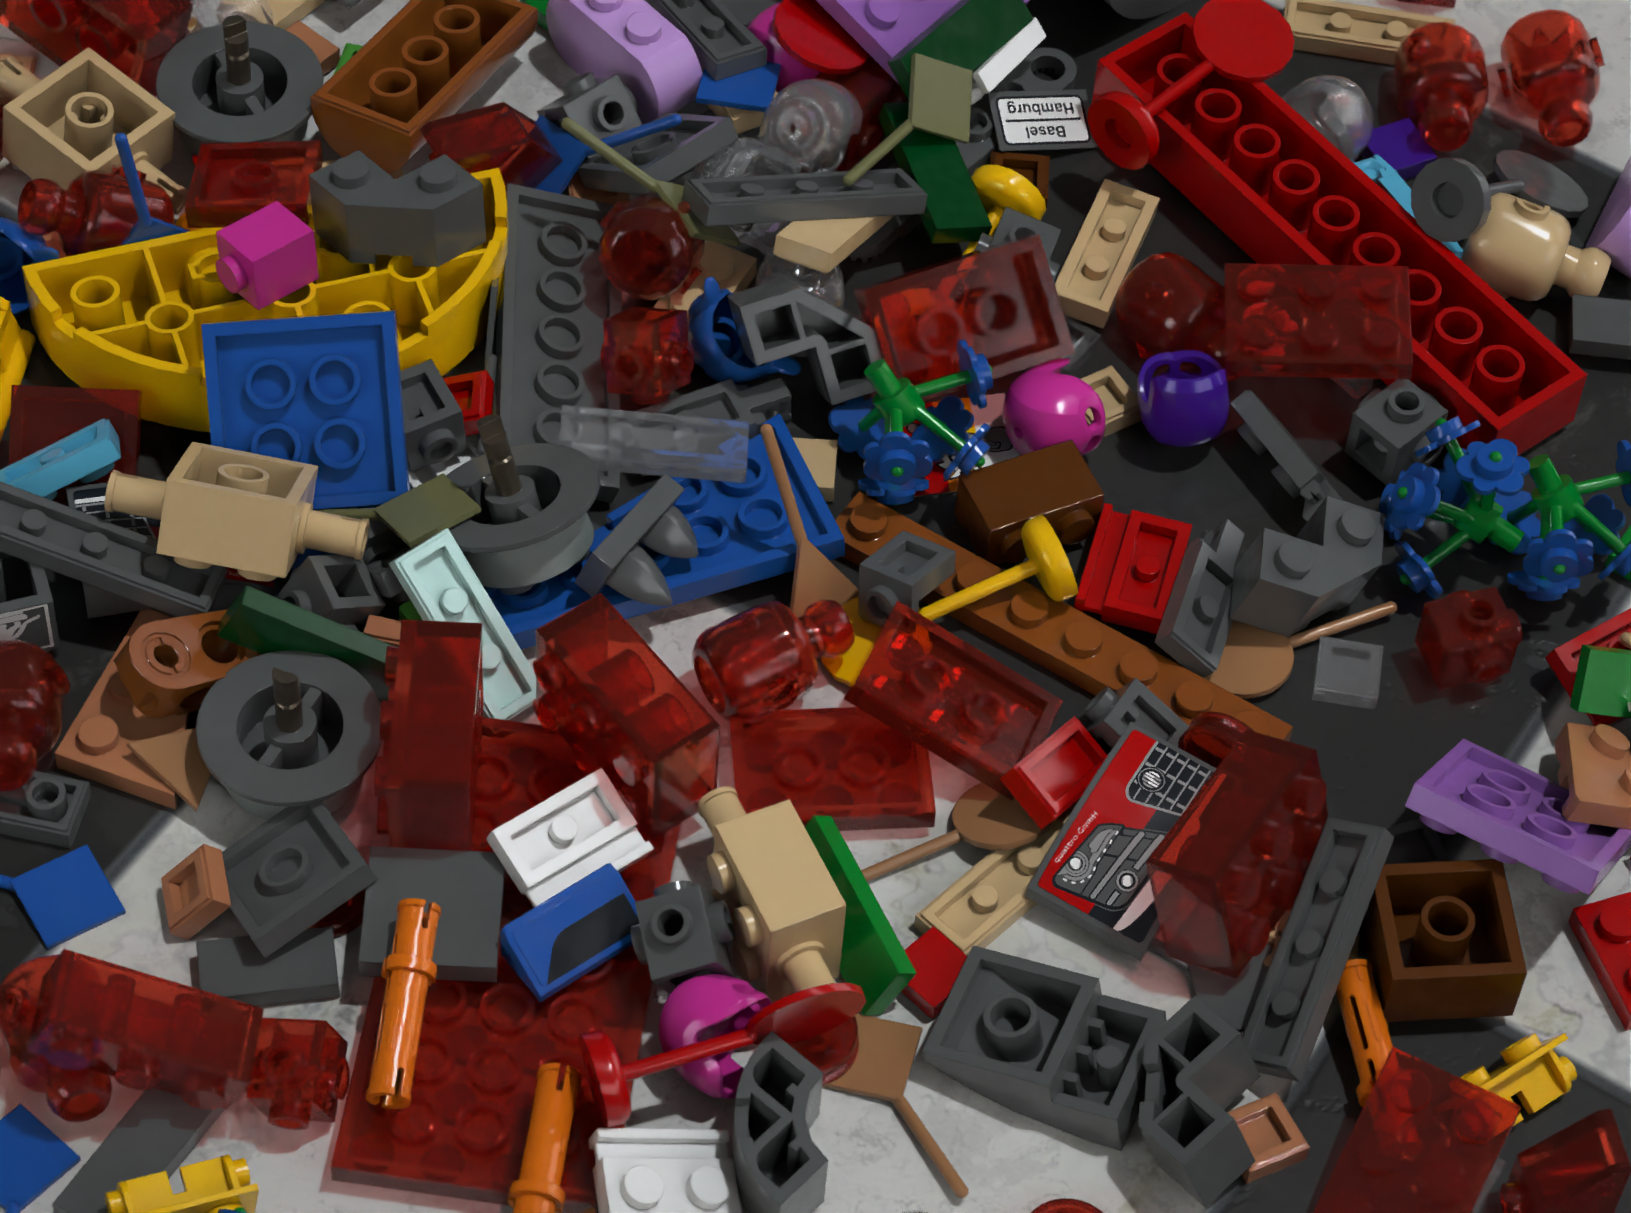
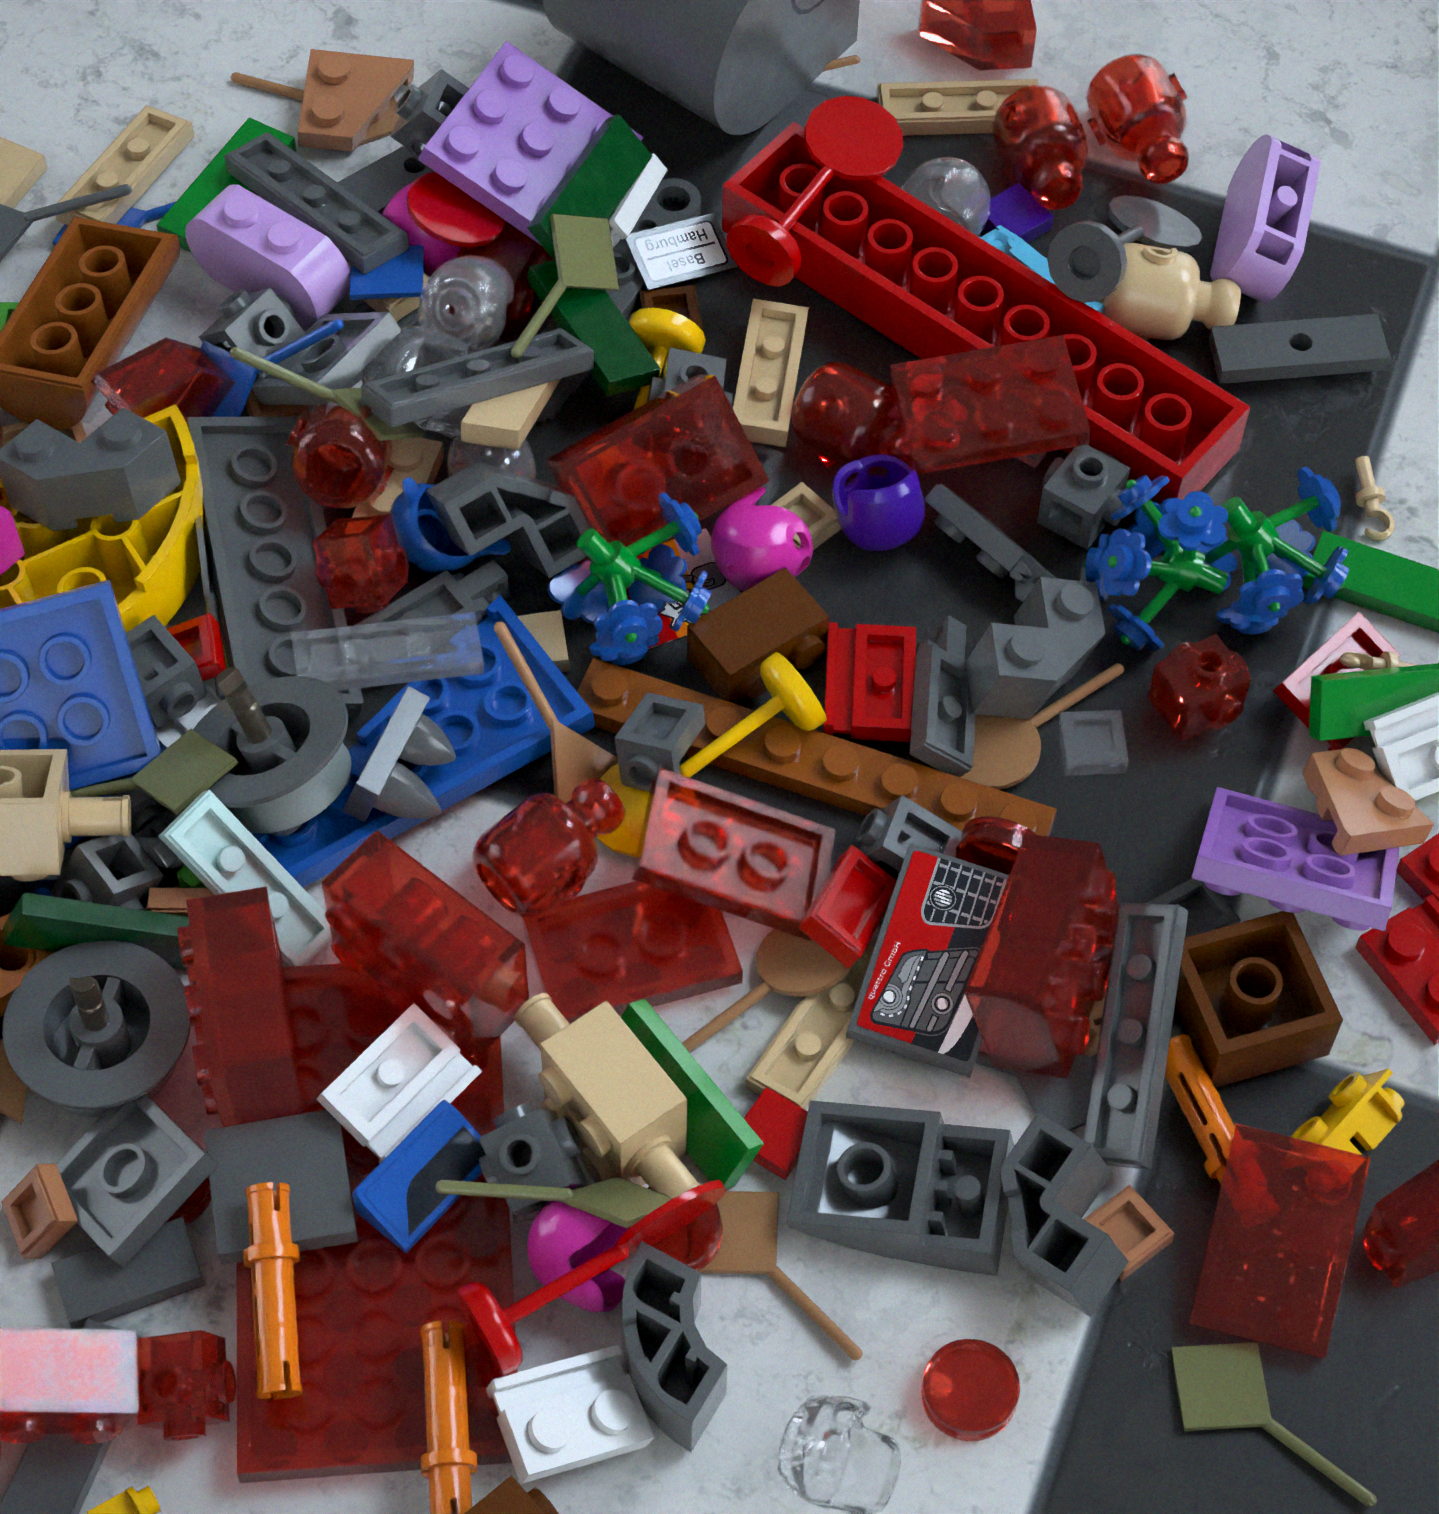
camera: 10 degrees left, 5 degrees up
(753, 988) = (610, 1199): none -> olive piece

